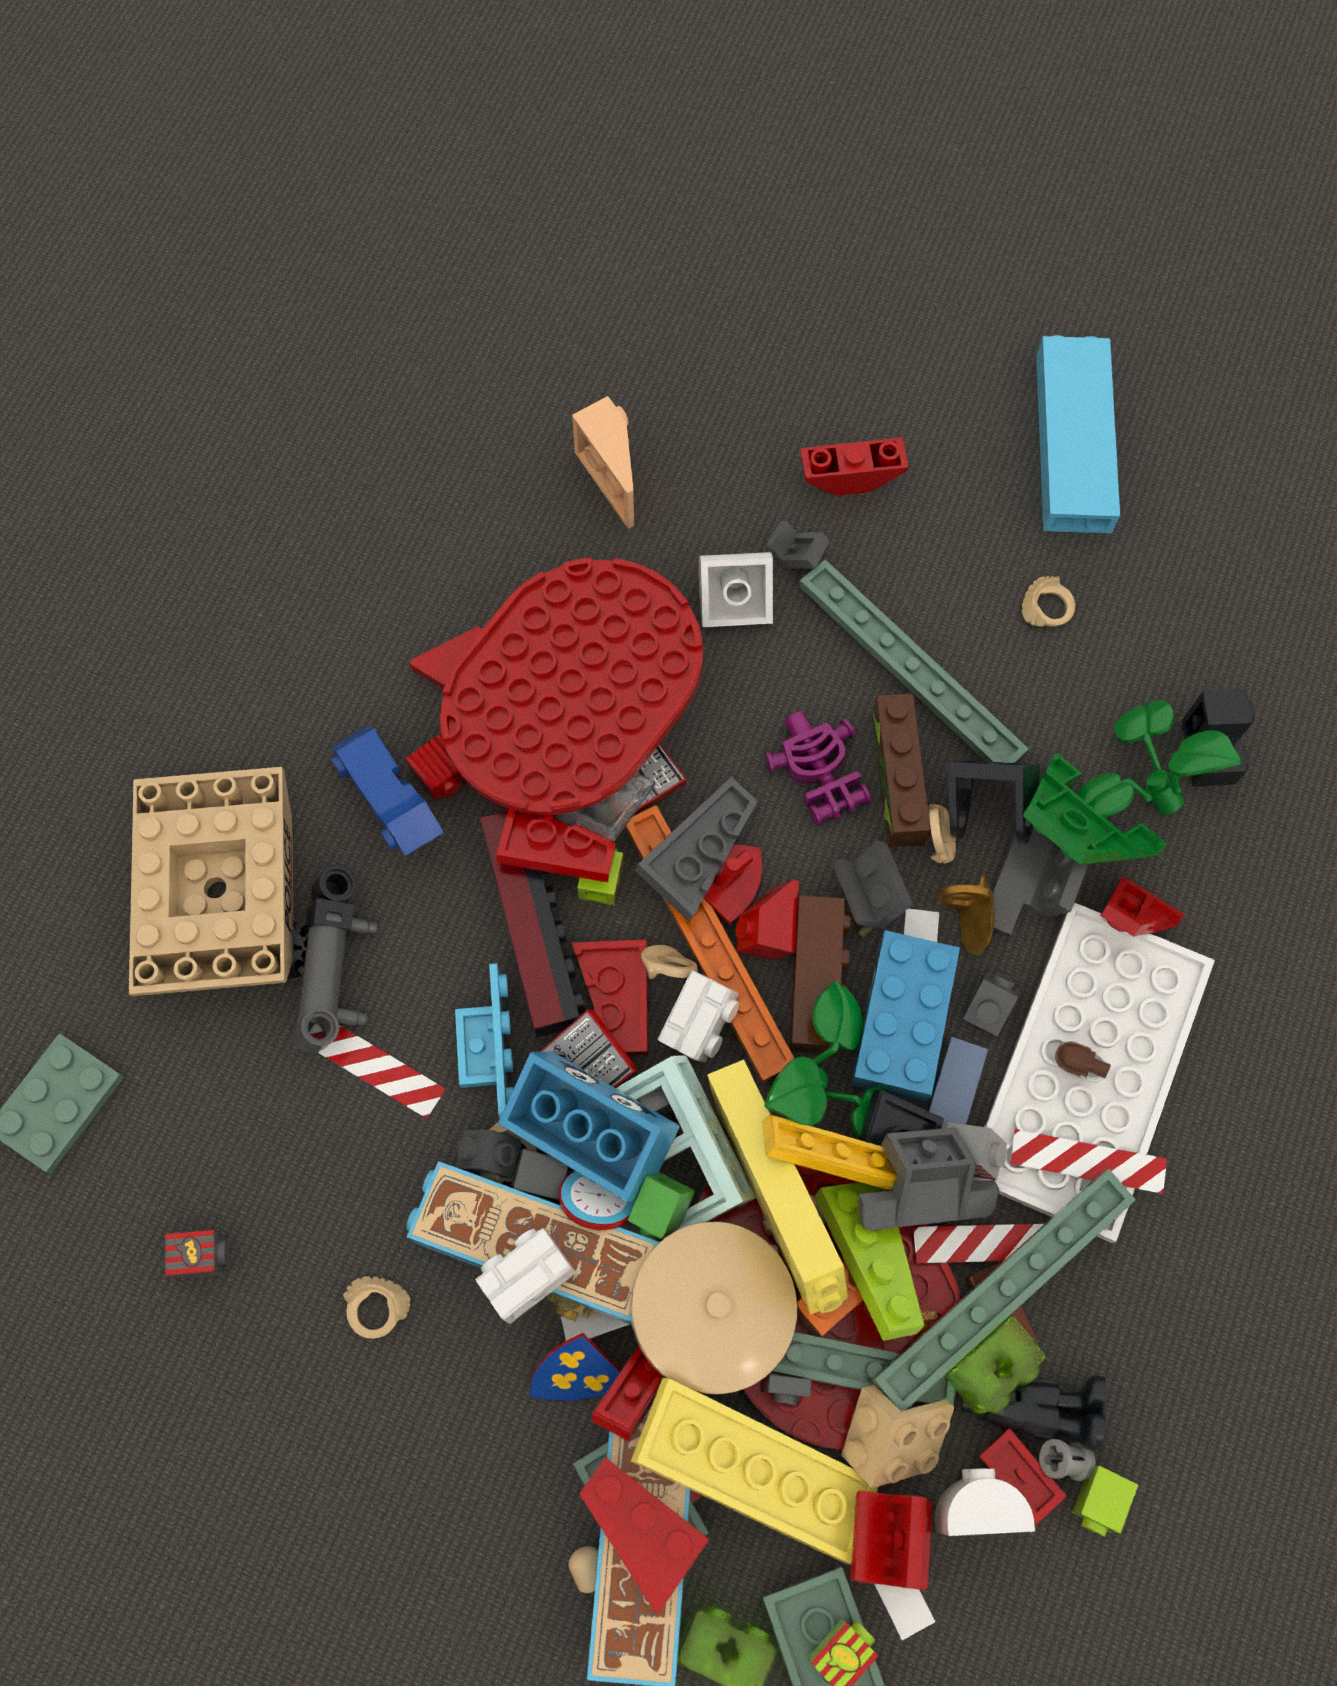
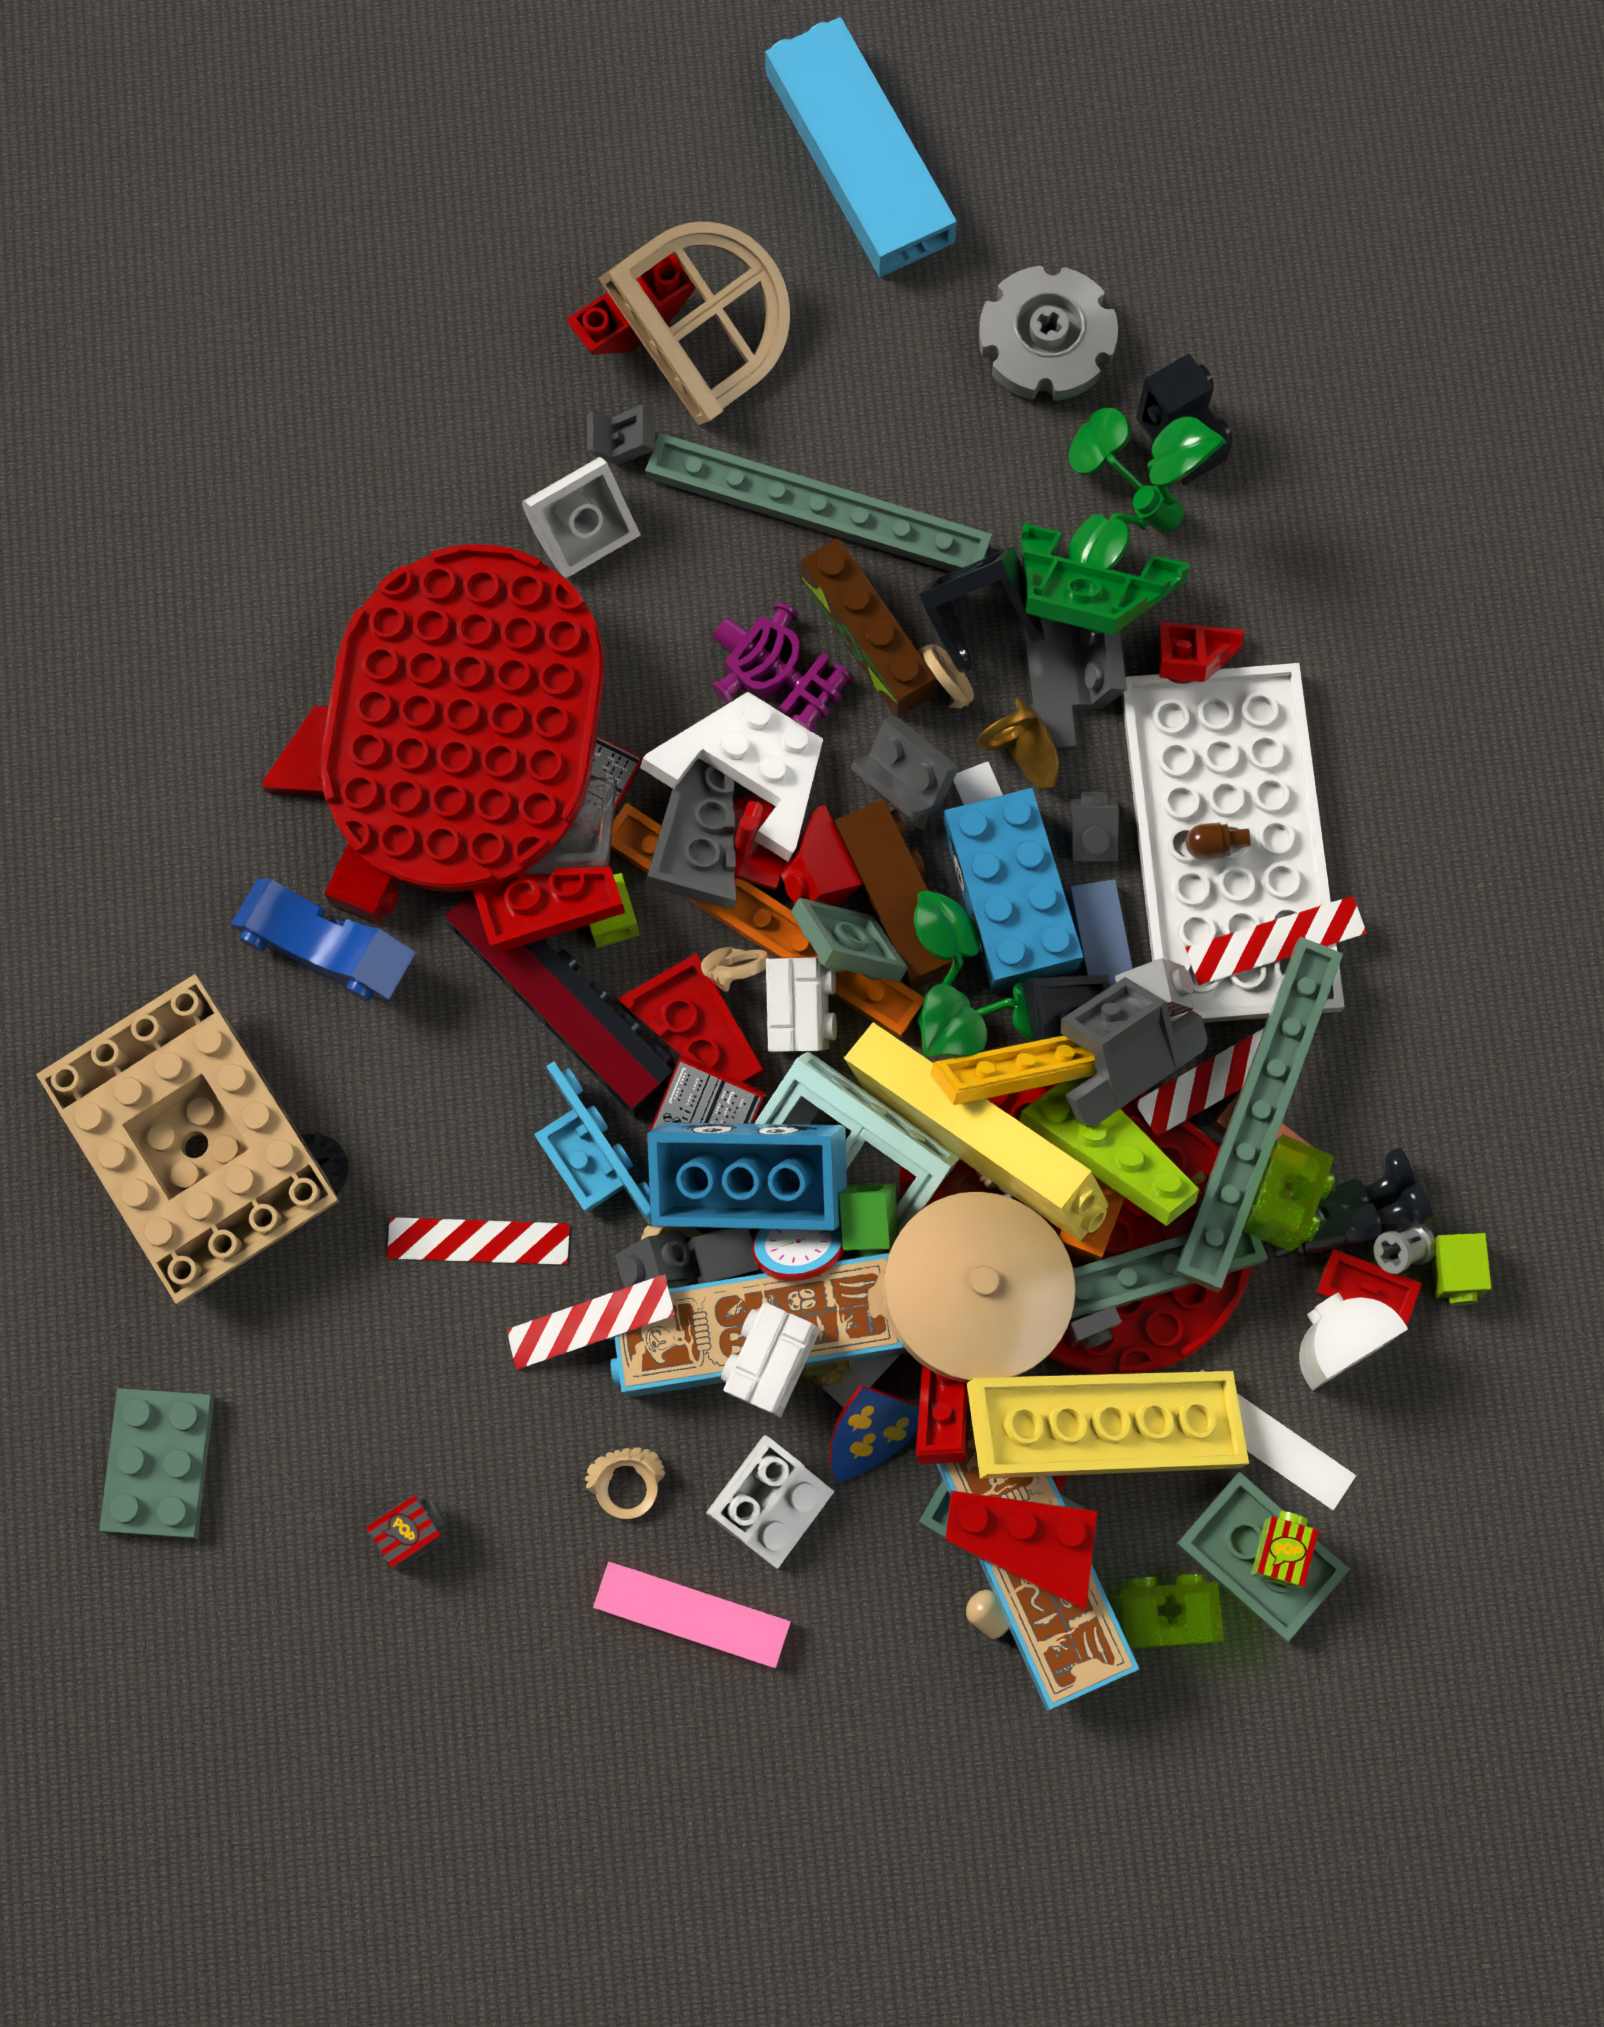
camera: 25 degrees left, 5 degrees up
(327, 927) = (344, 1118): dark grey piece -> none
(366, 1438) = (692, 1614): none -> bright pink tile
(416, 1171) = (590, 1322): none -> sticker
(469, 1384) = (770, 1501): none -> white brick
(604, 451) = (347, 432): light nougat slope -> none
(761, 989) = (848, 941): none -> sand green plate
(771, 816) = (756, 750): none -> white wing
(861, 496) = (663, 341): none -> tan window
(891, 1540) = (1273, 1418): red bracket -> none
(894, 1443) = (1225, 1323): tan bracket -> none
(1046, 585) = (913, 341): tan piece -> none
(1147, 627) = (1048, 333): none -> light grey piece

